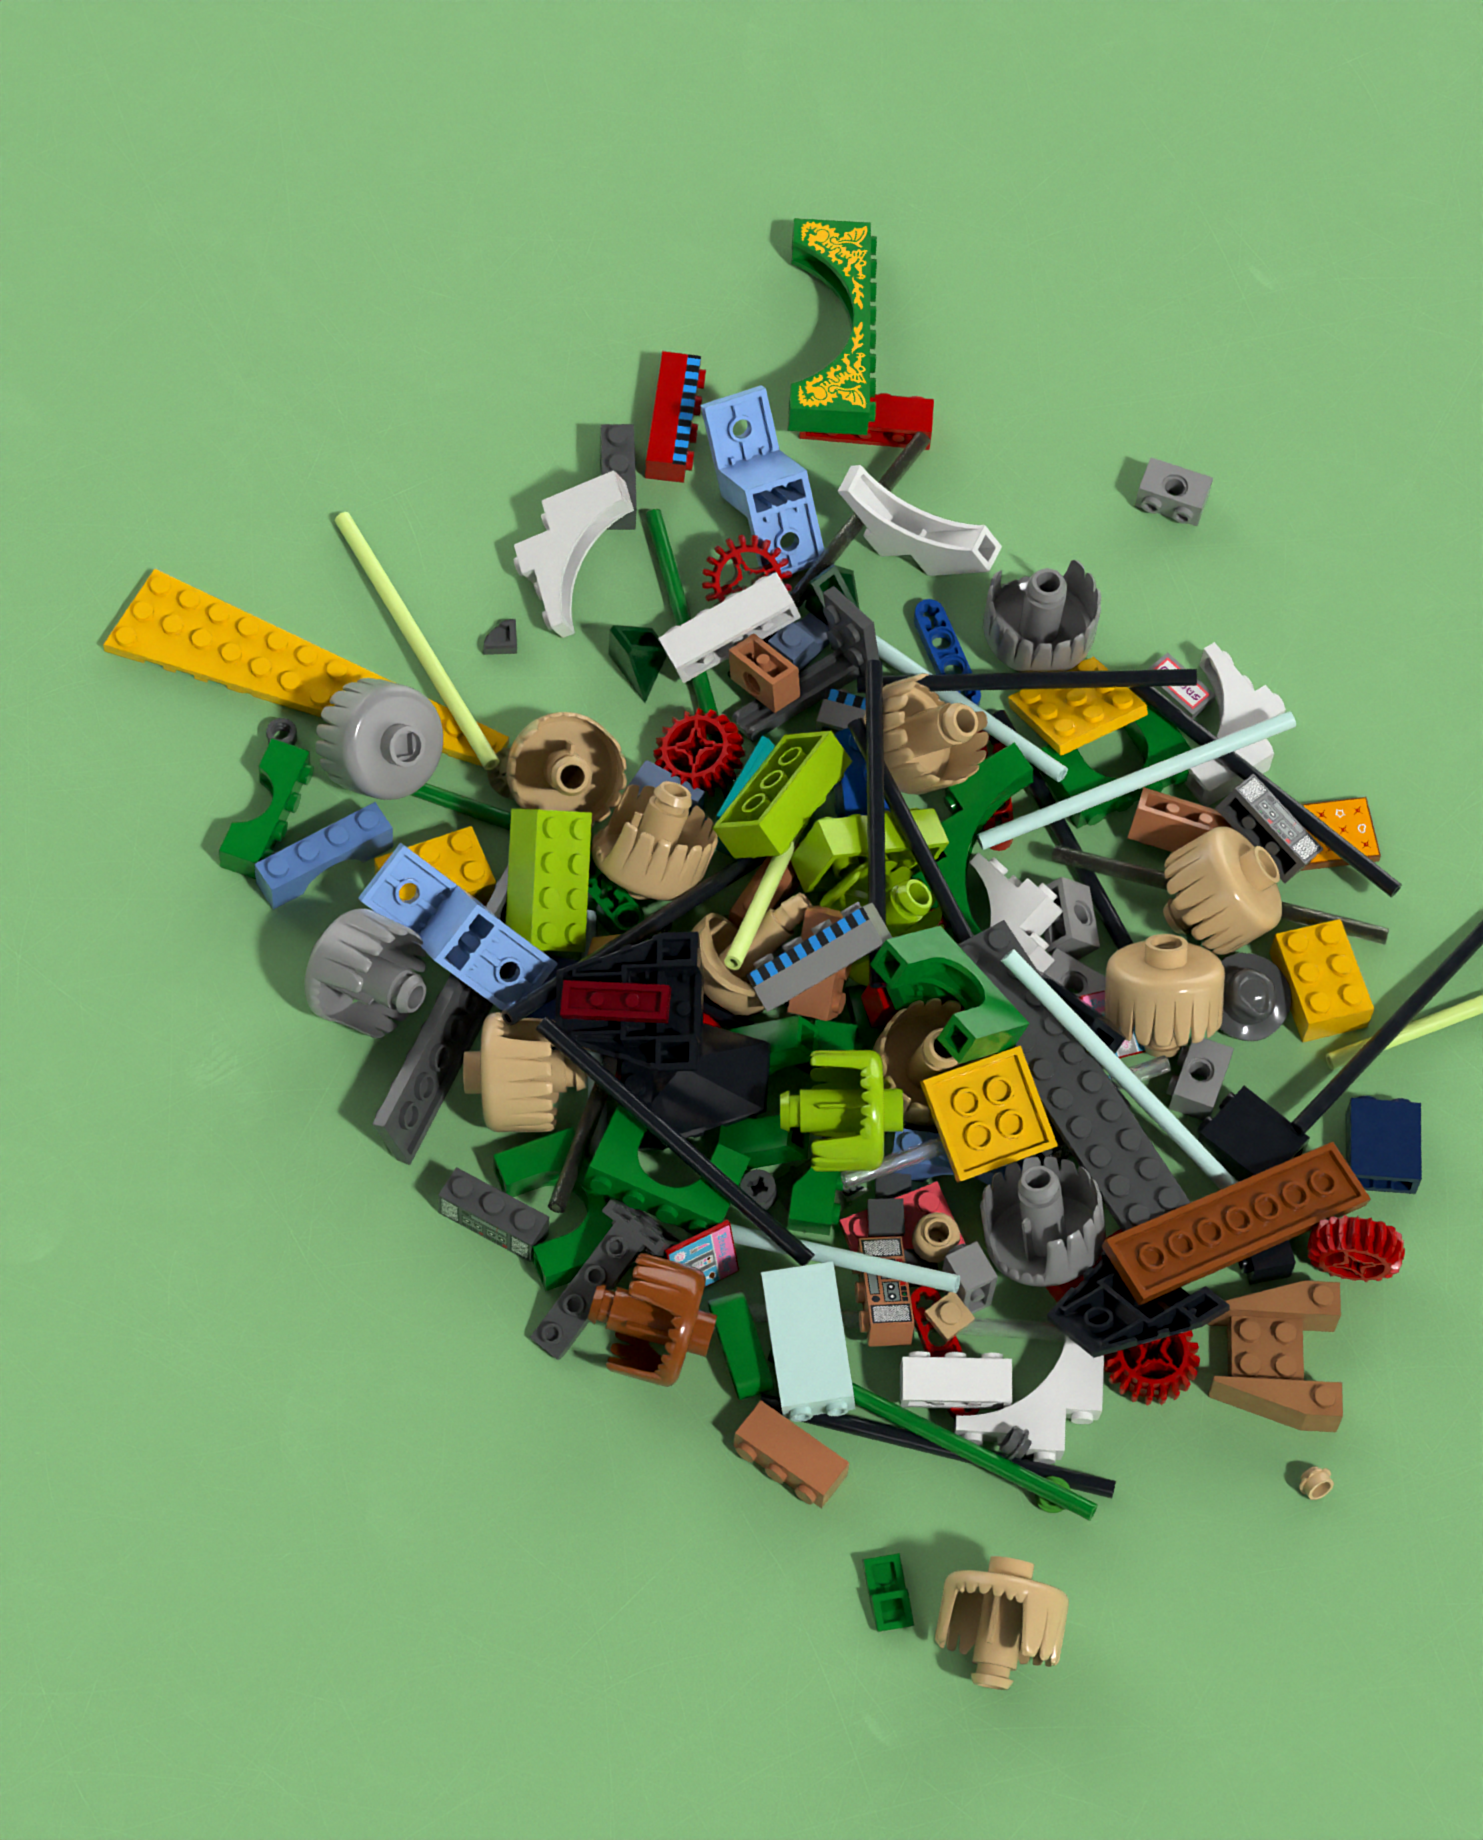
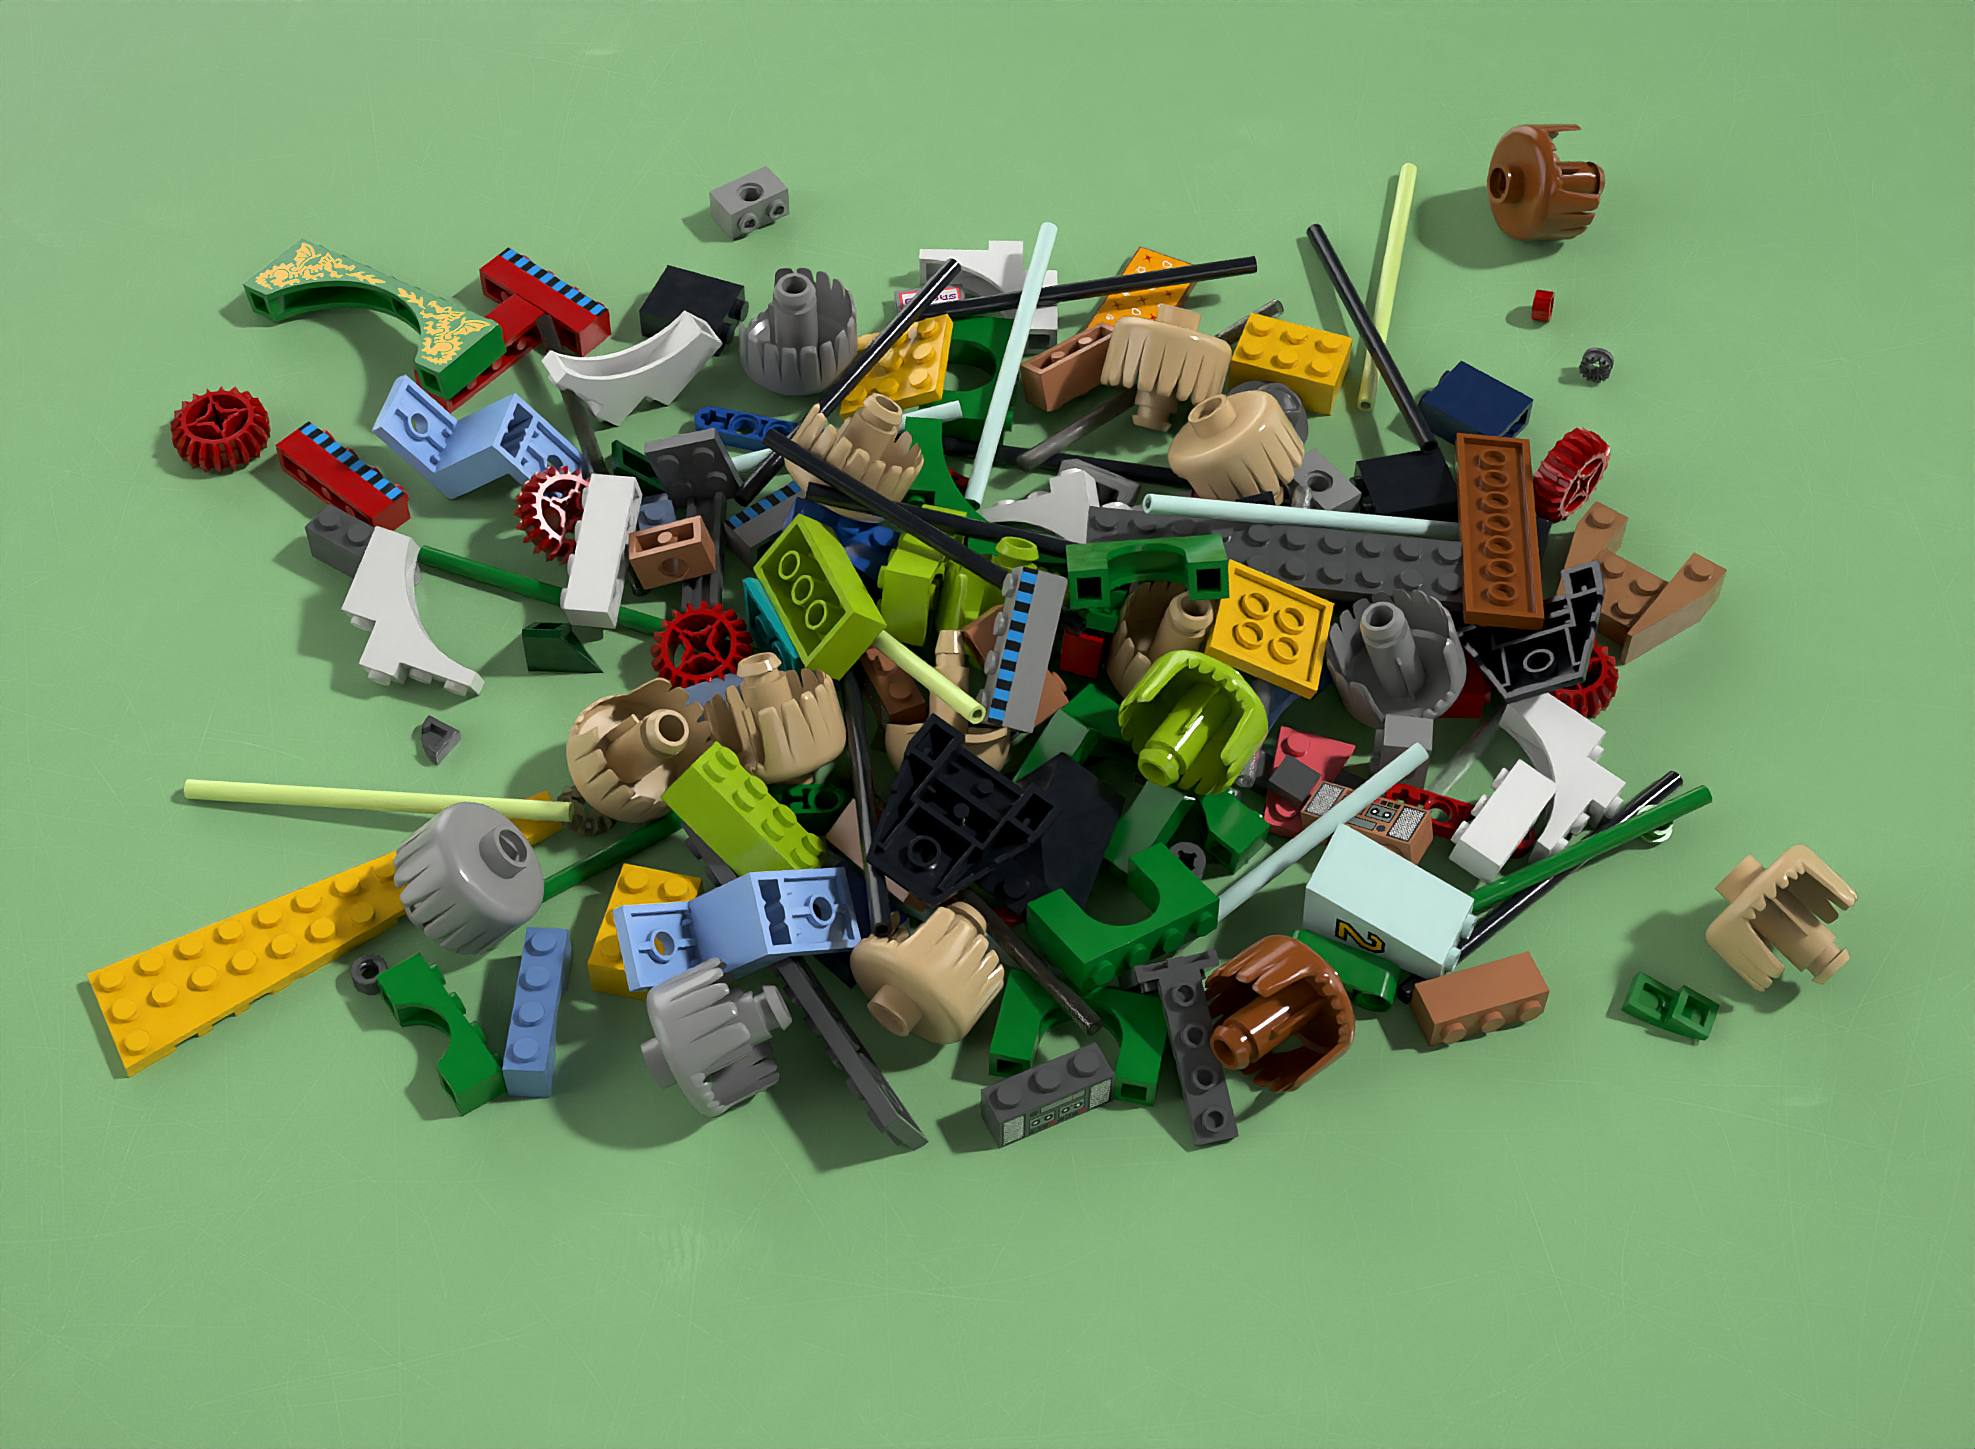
camera: 50 degrees left, 10 degrees down
(615, 1001) = (947, 823): dark red plate -> none
(652, 294) = (201, 441): none -> red gear
(675, 1141) = (1107, 879): black piece -> none
(709, 1251) = (1231, 932): piece -> none
(932, 1229) = (1345, 752): tan head -> none
(949, 1316) = (1433, 788): tan plate -> none
(953, 424) = (577, 318): none -> red brick
(1015, 1443) = (1598, 810): dark grey plate -> none
(1028, 528) = (706, 297): none -> black brick
(1268, 824) = (1104, 302): dark grey brick -> none
(1316, 1482) = (1764, 633): tan plate -> none

